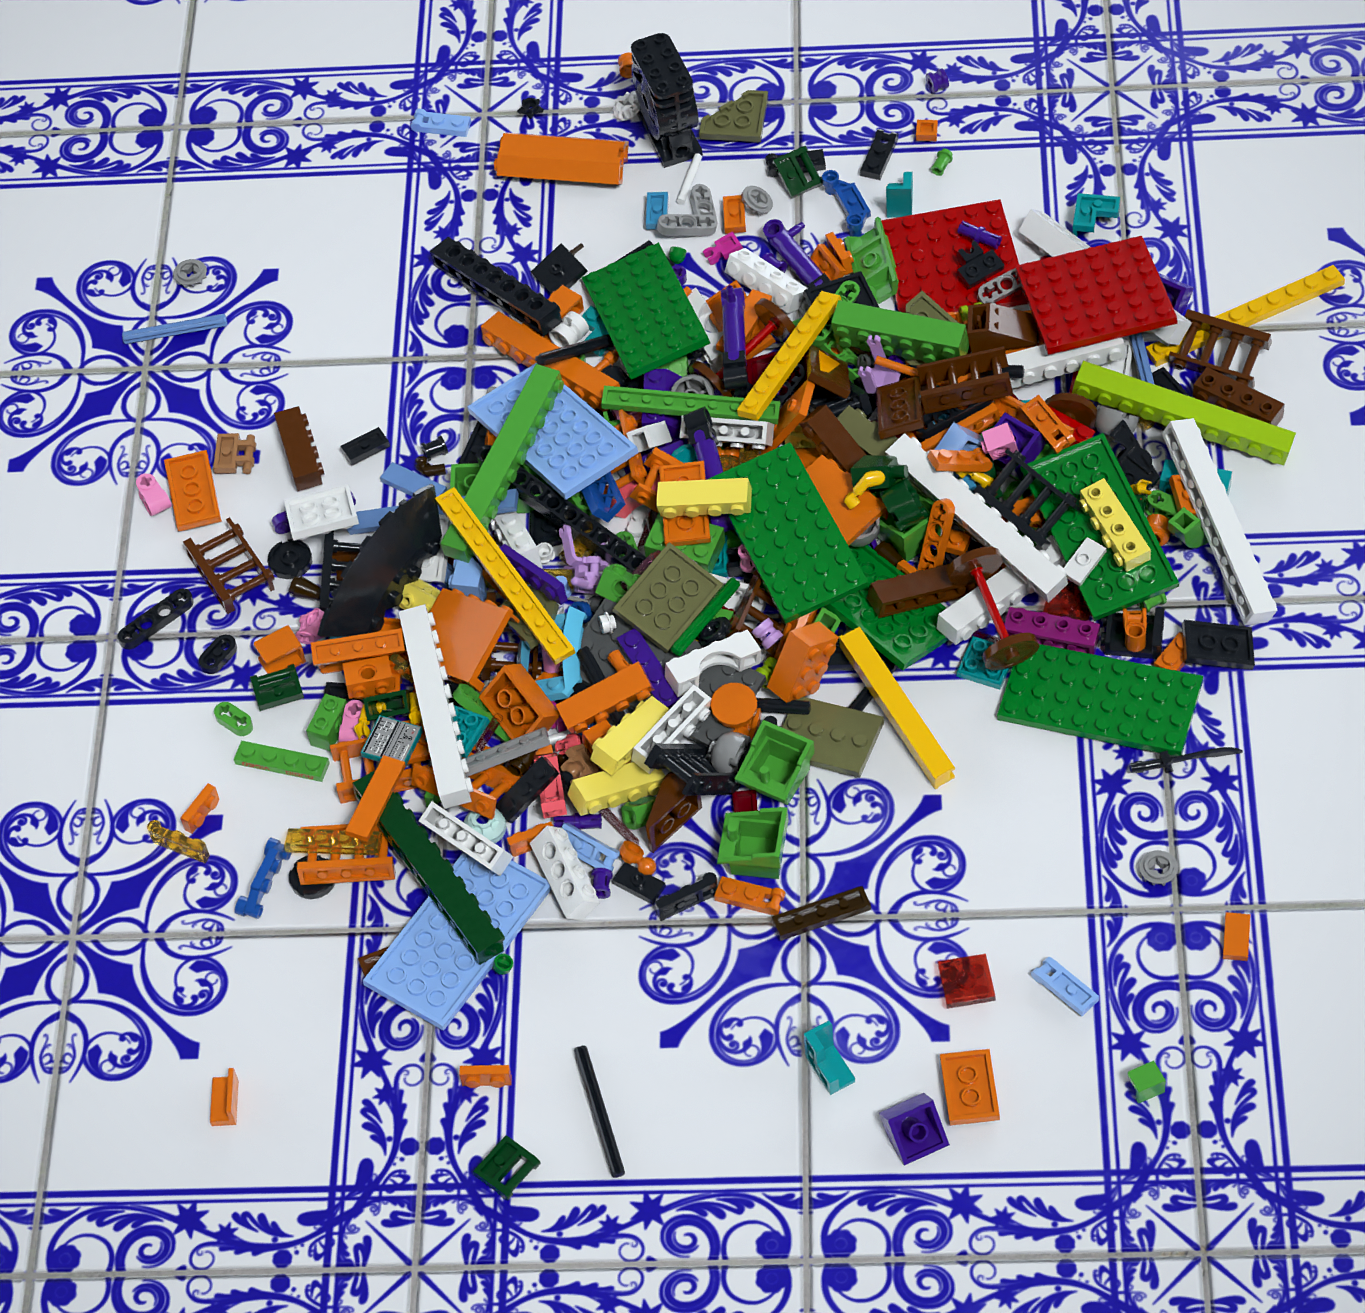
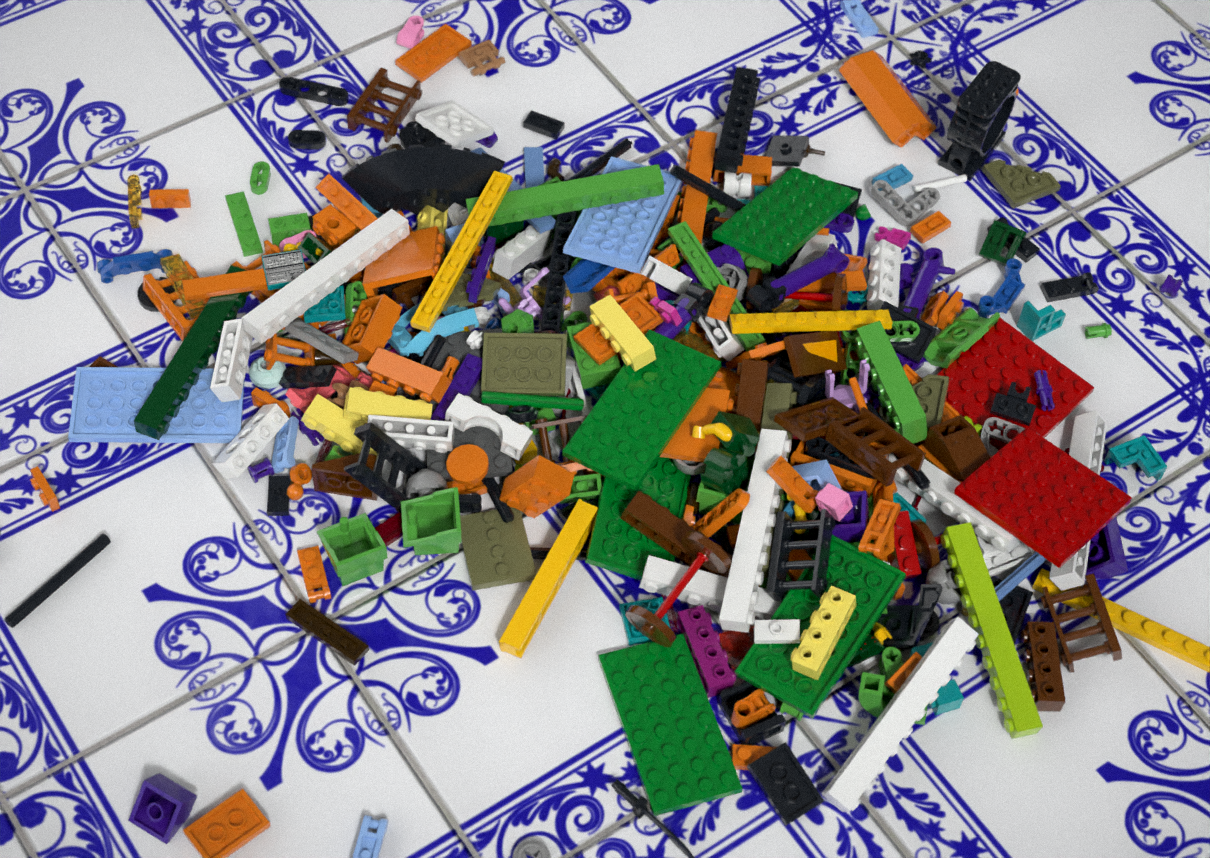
camera: 45 degrees right, 0 degrees up
(278, 692) = (297, 189): dark green plate -> none
(279, 650) = (329, 163): orange piece -> none
(298, 448) = (510, 88): reddish brown brick -> none
(434, 448) = (572, 163): black bush -> none
(458, 425) = (602, 161): none -> black axle
(502, 964) = (154, 446): green hinge -> none
(686, 897) = (282, 532): black plate -> none
(704, 452) = (667, 312): none -> dark pink plate
(720, 408) = (722, 303): none -> orange plate
(764, 201) = (957, 225): light grey gear -> none
(764, 629) = (548, 449): lavender wheel -> none
(826, 1059) = (191, 708): teal panel -> none
(926, 130) = (1118, 305): orange plate -> none
(966, 981) = (327, 770): clear red plate -> none
(1159, 525) = (856, 668): orange head -> none

